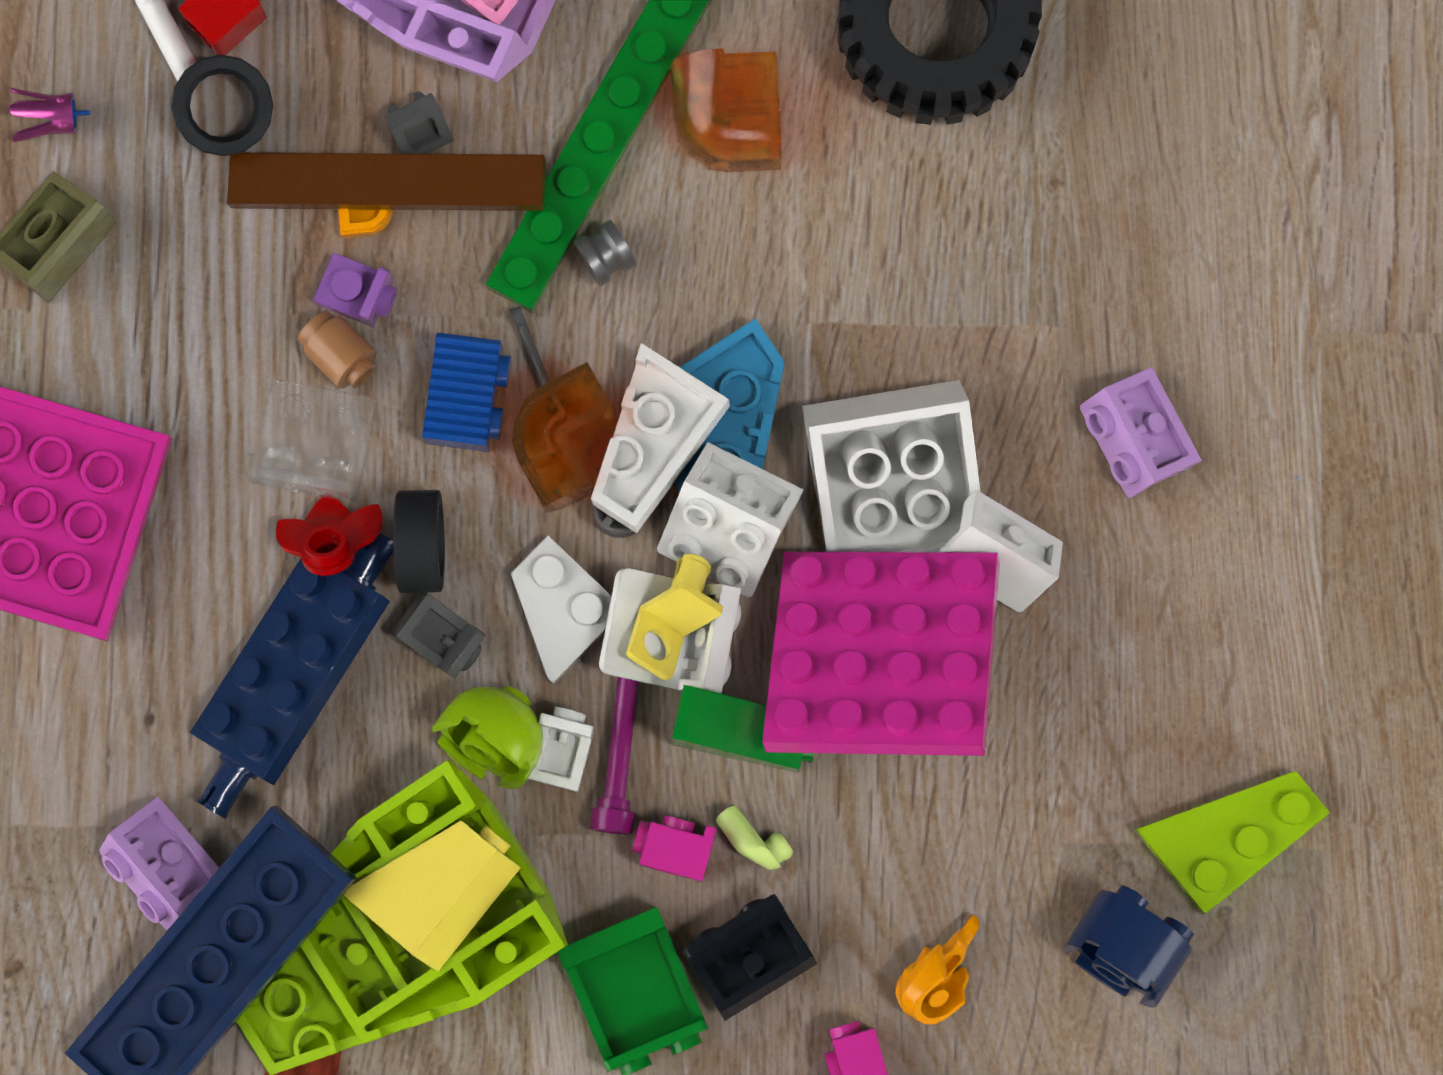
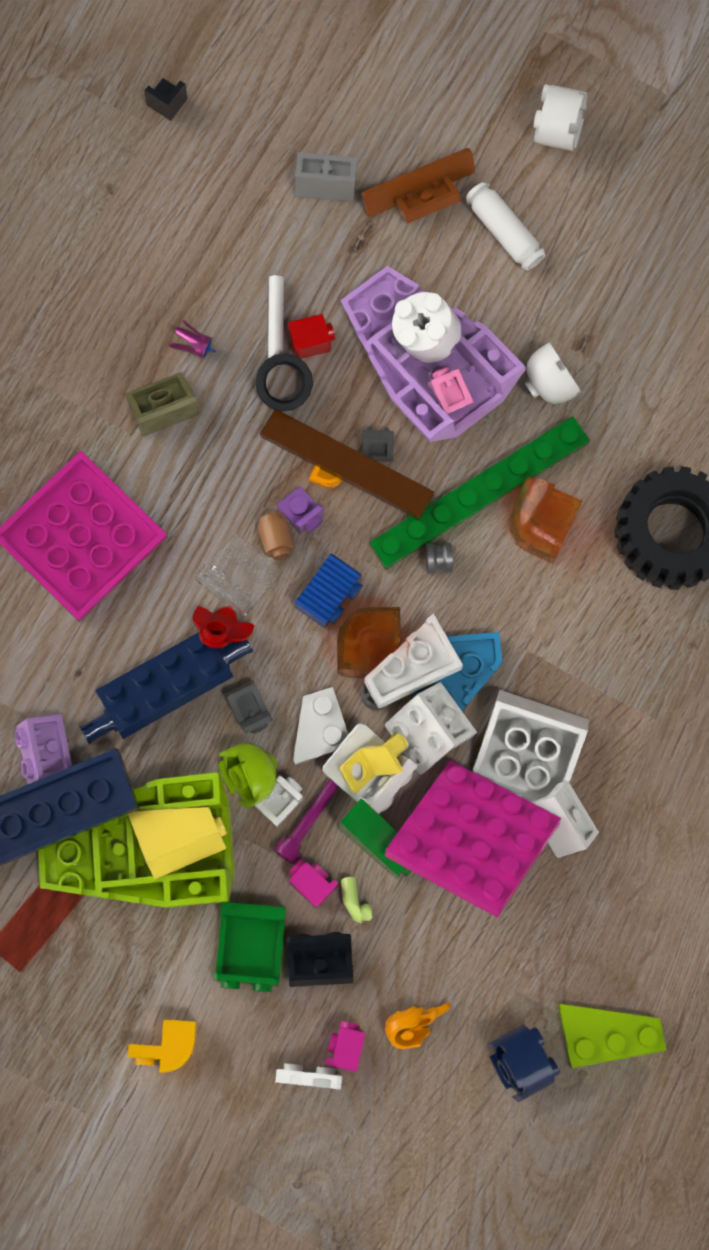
camera: 25 degrees right, 5 degrees down
(419, 541) = (264, 654): black tyre -> none
(529, 345) = (377, 567): dark grey hinge -> none
(1139, 432) = (669, 796): lavender bracket -> none

